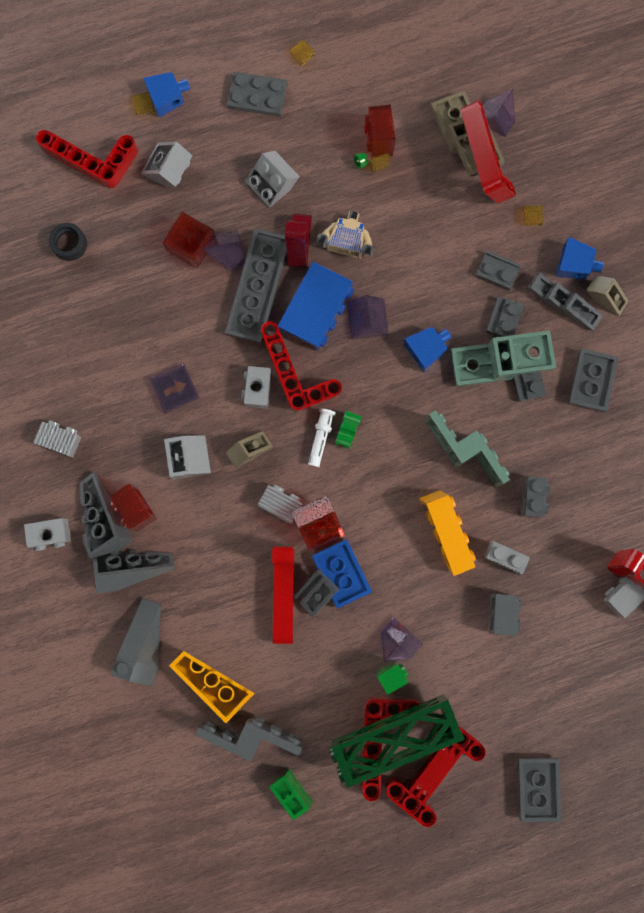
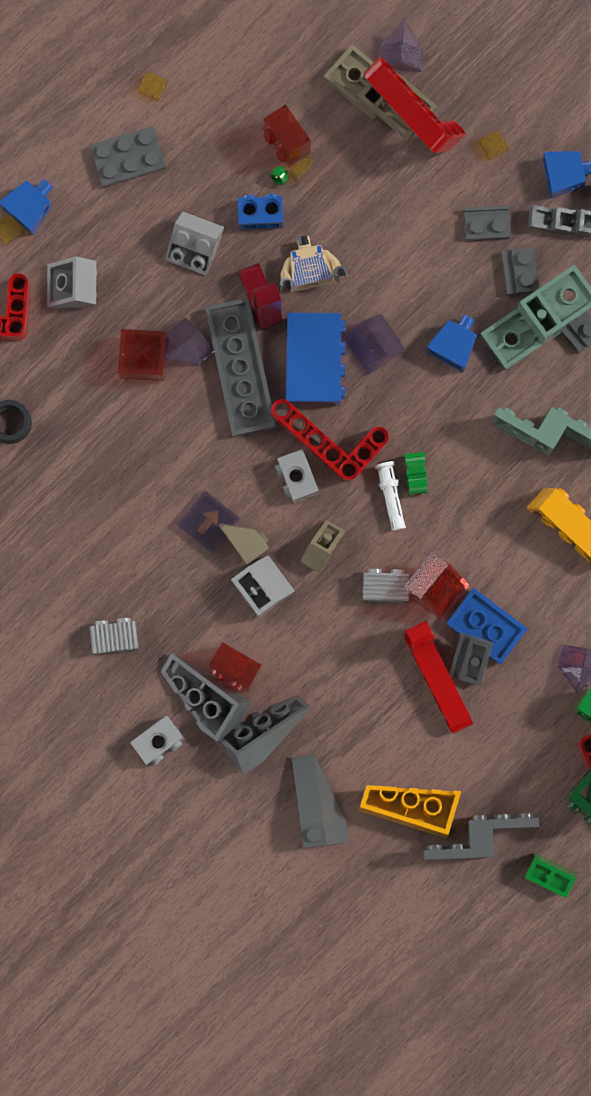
camera: 25 degrees left, 0 degrees up
(192, 415) = (245, 540): none -> dark tan slope
(329, 184) = (260, 218): none -> blue brick

